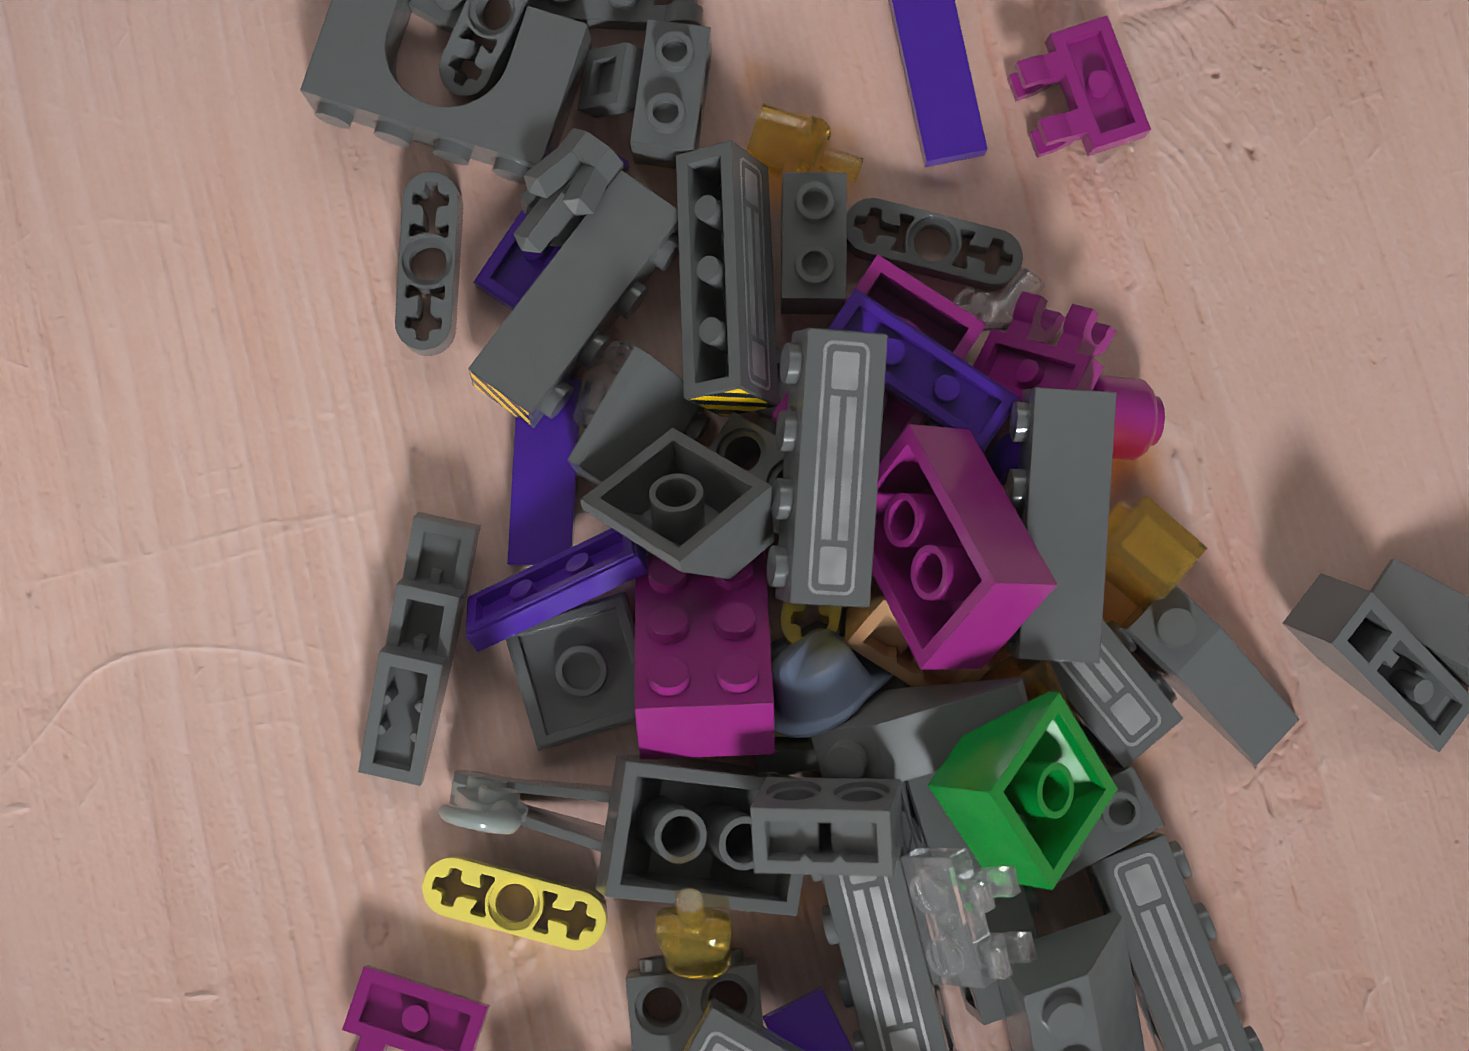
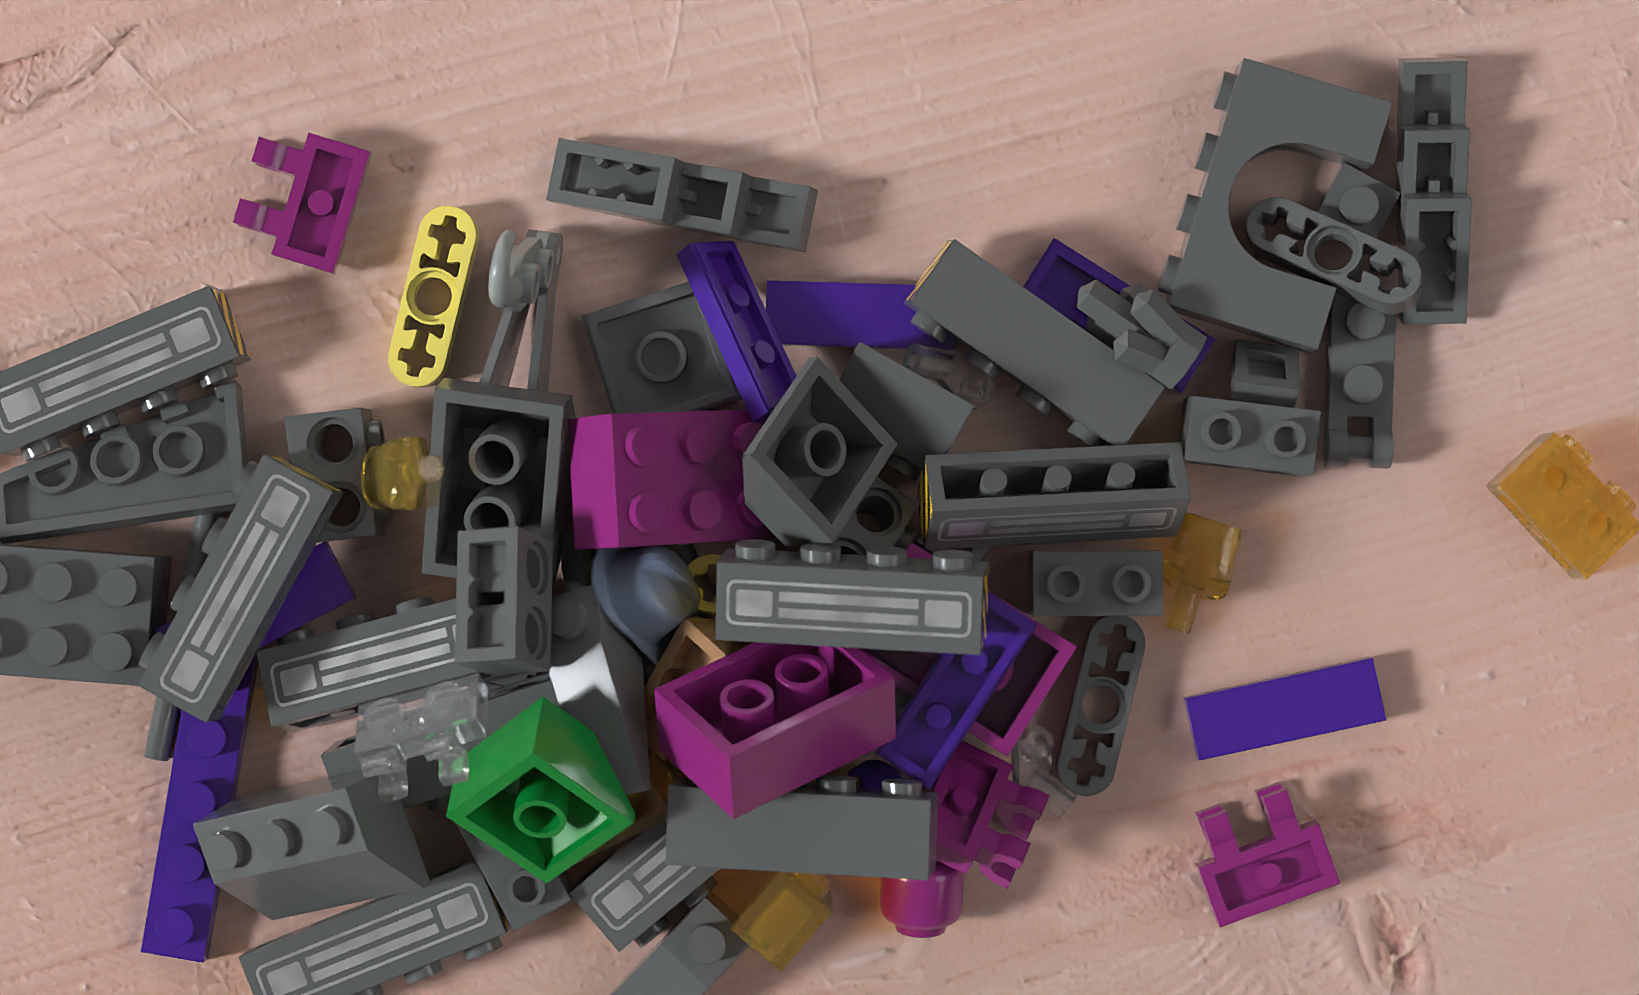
camera: 85 degrees right, 5 degrees up
(414, 217) = (1120, 207): dark grey beam -> none

